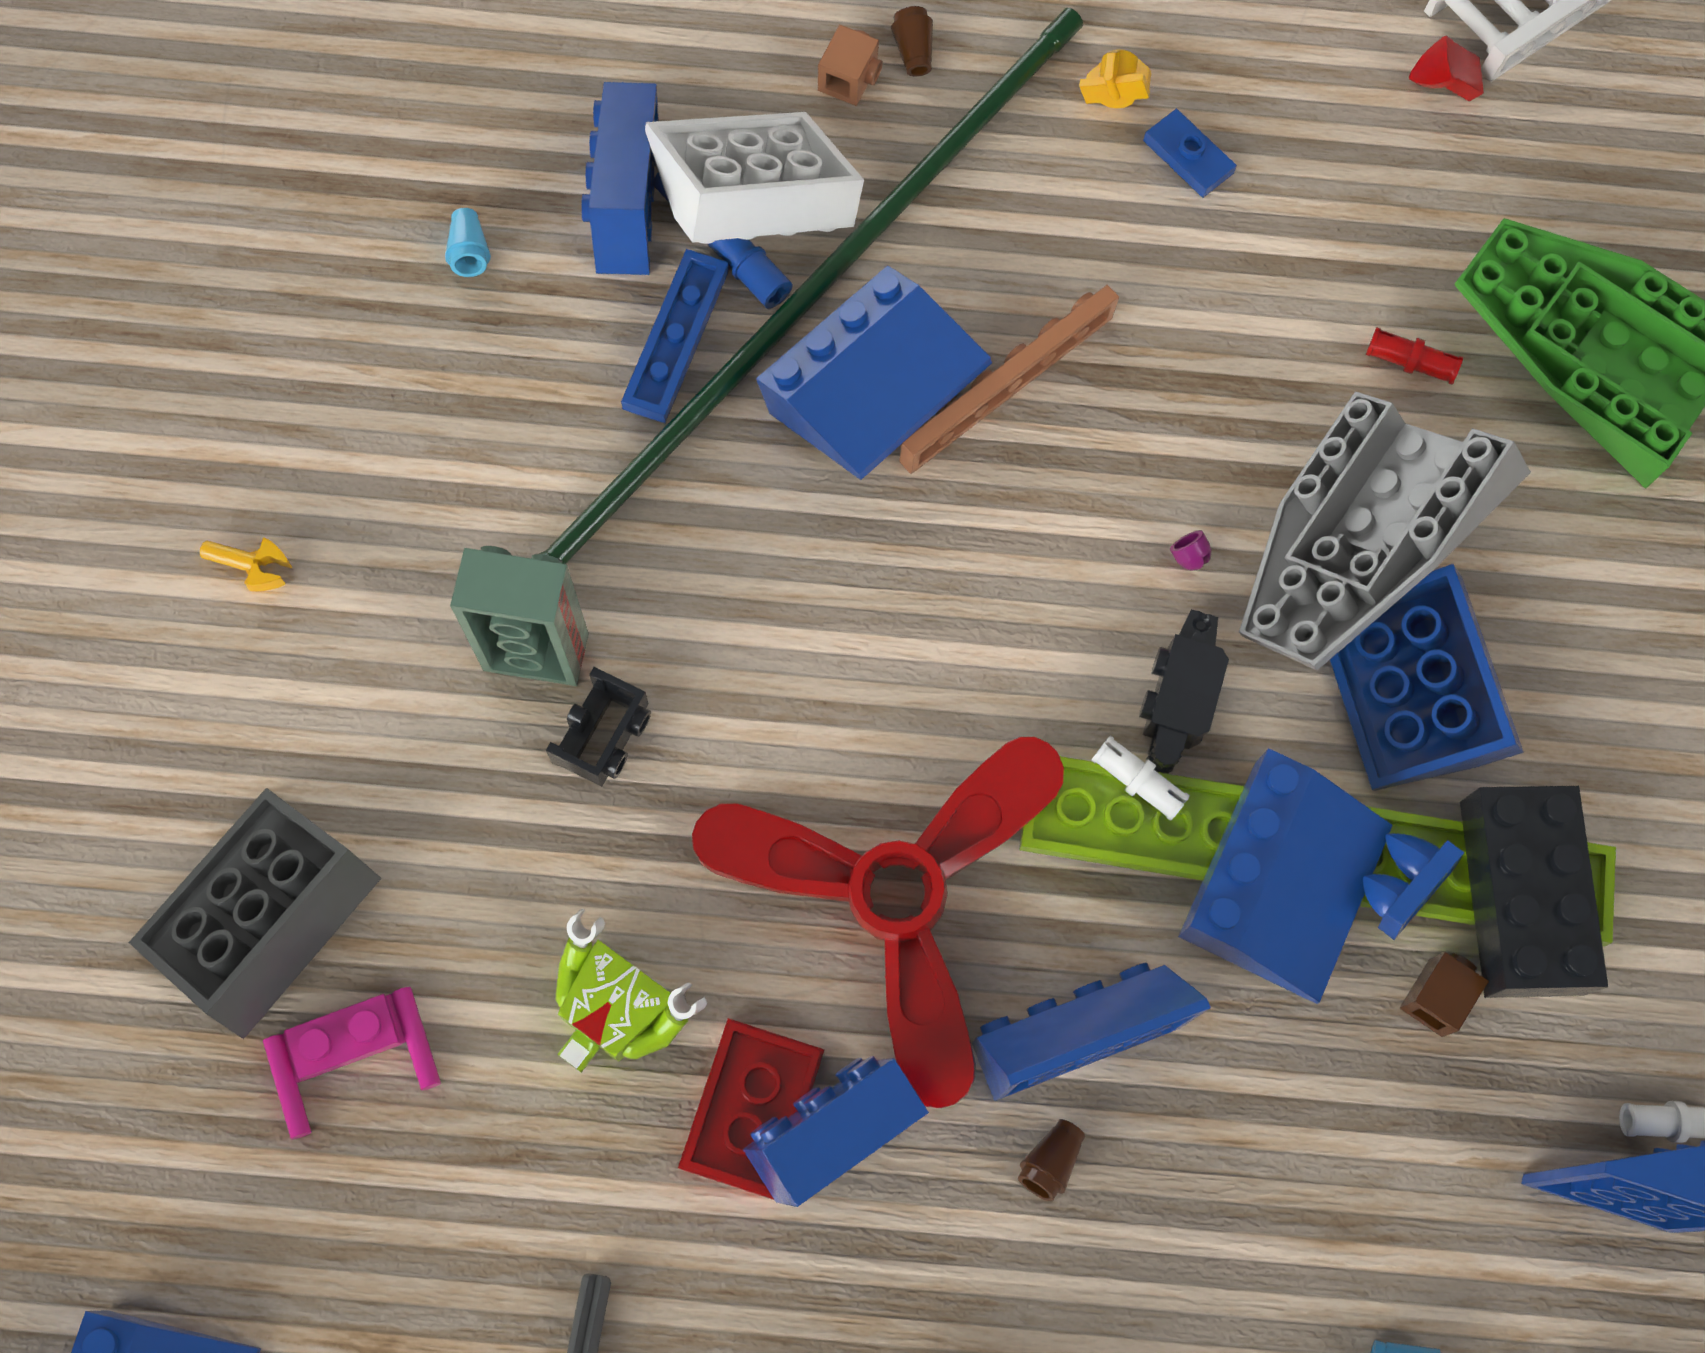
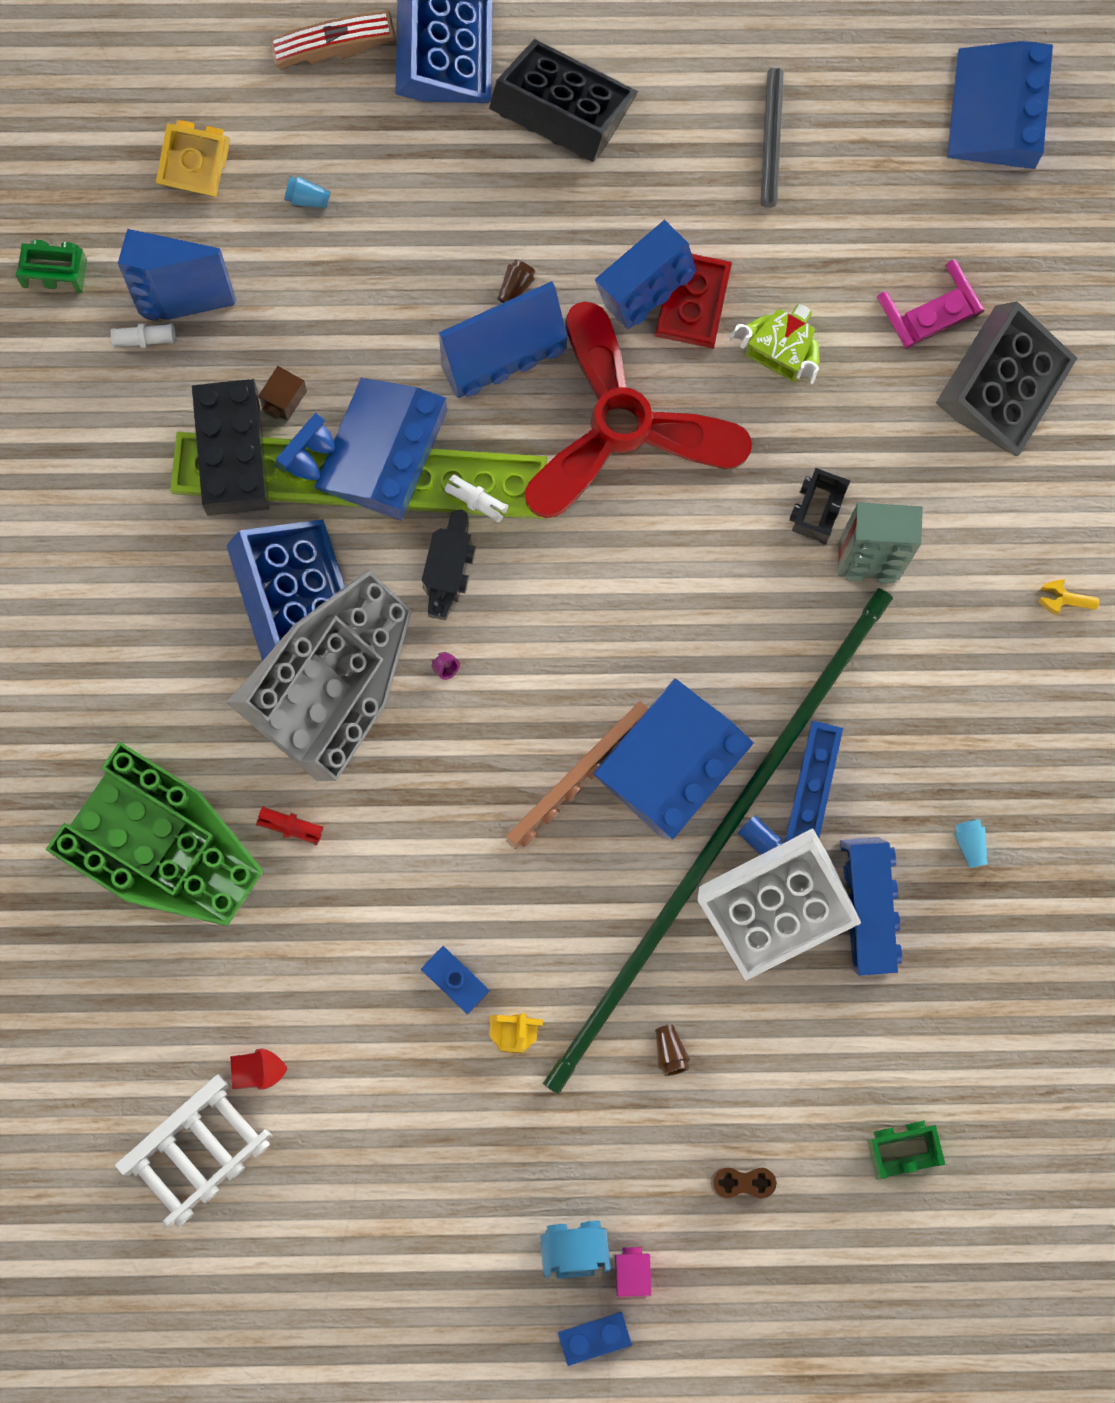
camera: 175 degrees right, 5 degrees up
(849, 65) = (717, 1021): nougat brick -> none

